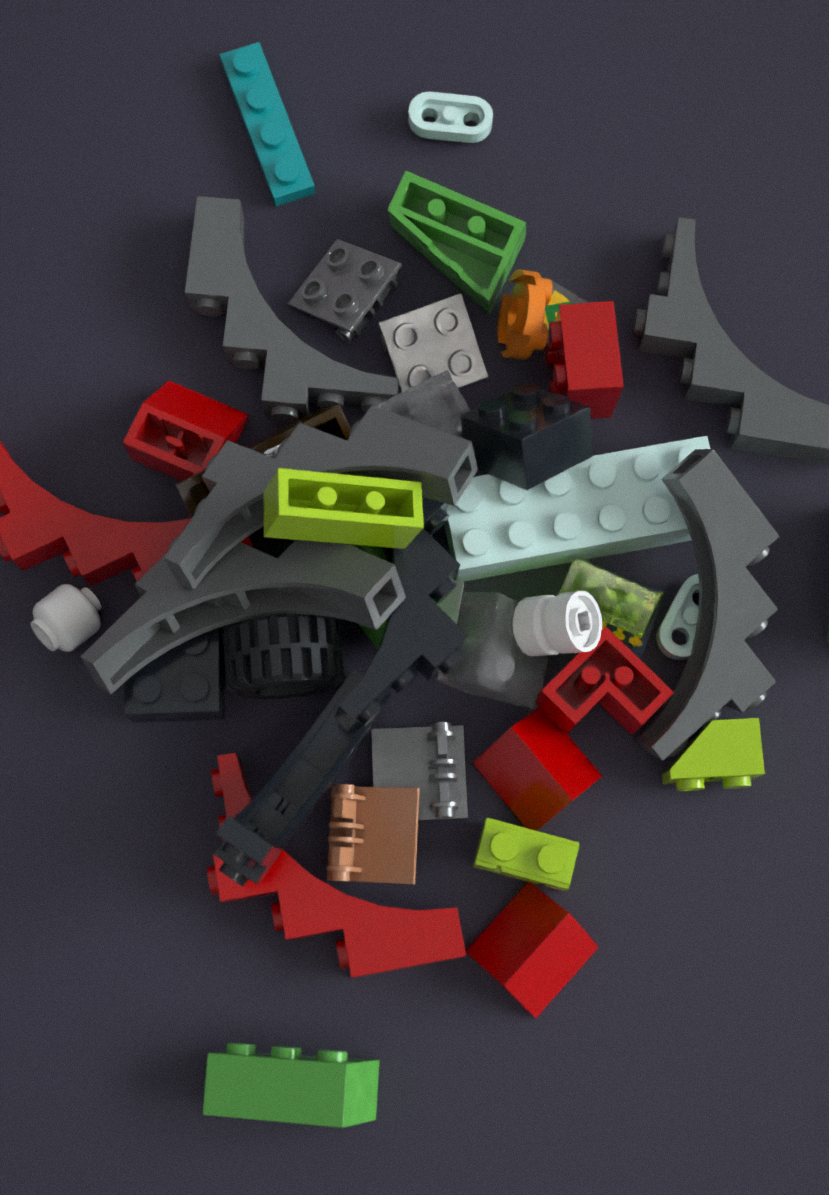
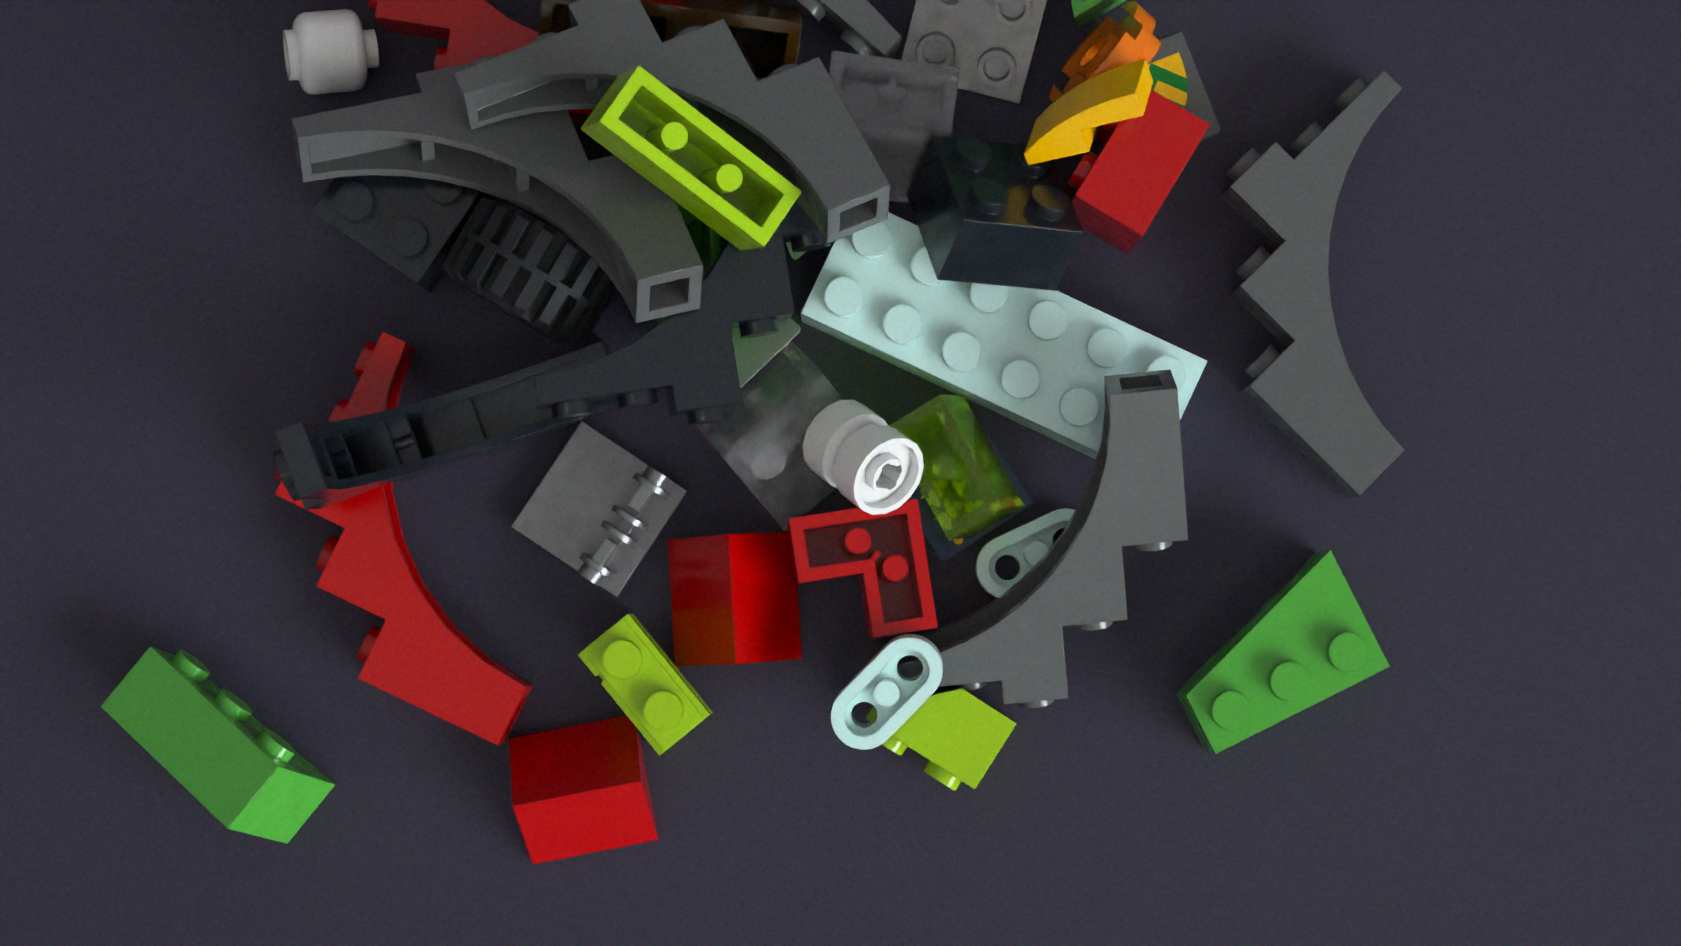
camera: 40 degrees right, 10 degrees up
(373, 834) = (495, 540): nougat hinge -> none
(532, 354) = (1072, 120): none -> yellow slope
(678, 751) = (888, 691): none -> light aqua plate

